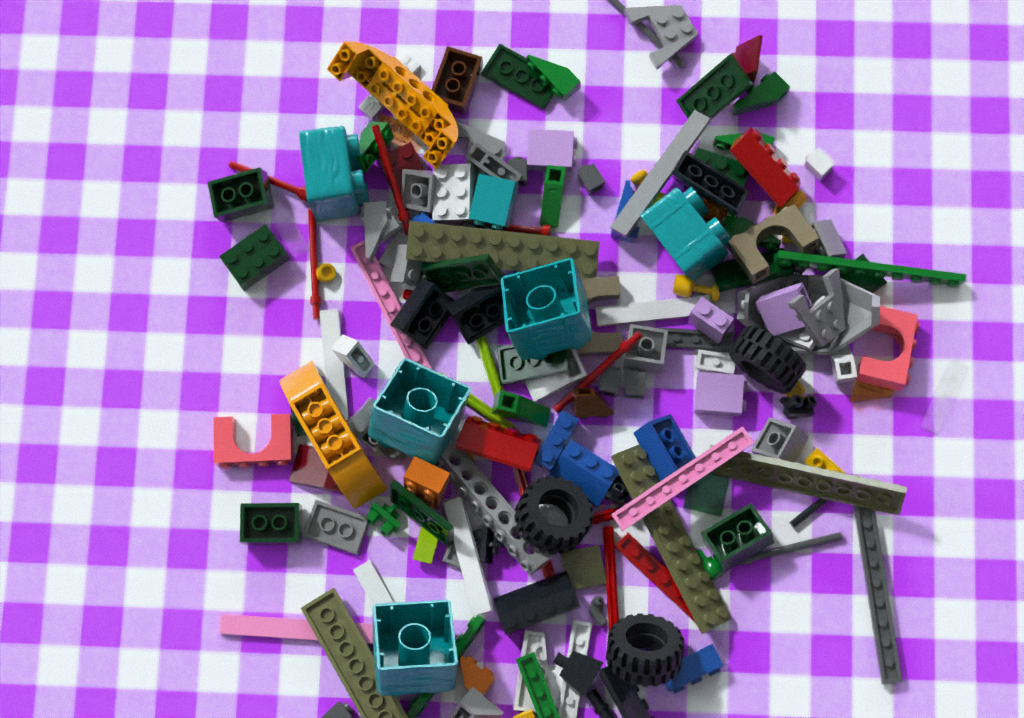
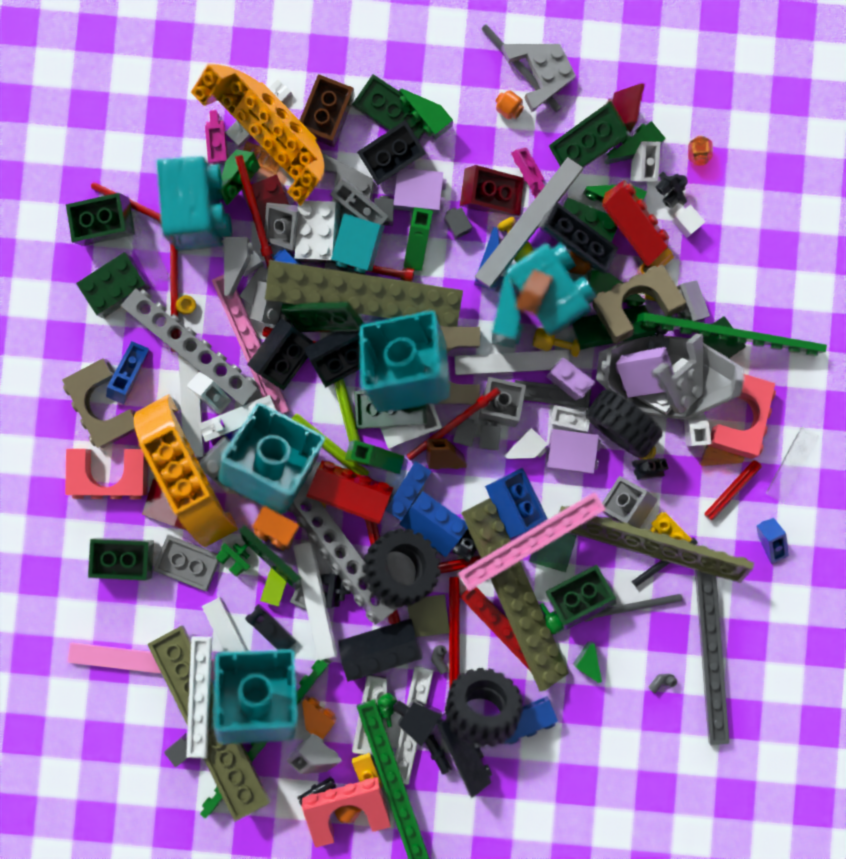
camera: 10 degrees left, 10 degrees up
(225, 357) = (80, 388): none -> dark tan arch
(270, 341) = (126, 373): none -> blue slope
(336, 322) = (133, 306): none -> light grey brick
(350, 112) = (216, 139): none -> dark pink hinge
(356, 656) = (199, 697): none -> white tile
(359, 389) = (232, 420): none -> white hinge
(422, 587) = (271, 629): none -> black plate
(522, 115) = (391, 152): none -> black slope
(545, 658) = (386, 704): none -> green piece
(622, 146) = (491, 191): none -> dark red slope
(634, 64) = (509, 105): none -> orange head
(643, 269) = (506, 325): none -> teal slope
(658, 124) = (529, 170): none -> dark pink hinge
(667, 233) = (534, 292): none -> dark orange slope
(674, 392) = (527, 446): none -> white slope
(751, 606) = (588, 662): none -> green slope
(772, 110) = (646, 162): none -> white slope
(802, 131) = (674, 187): none -> black hips
(825, 96) = (700, 150): none -> clear orange head
(829, 620) = (662, 680): none -> dark grey arm
(885, 425) = (733, 490): none -> red axle
(930, 472) = (773, 540): none -> blue slope

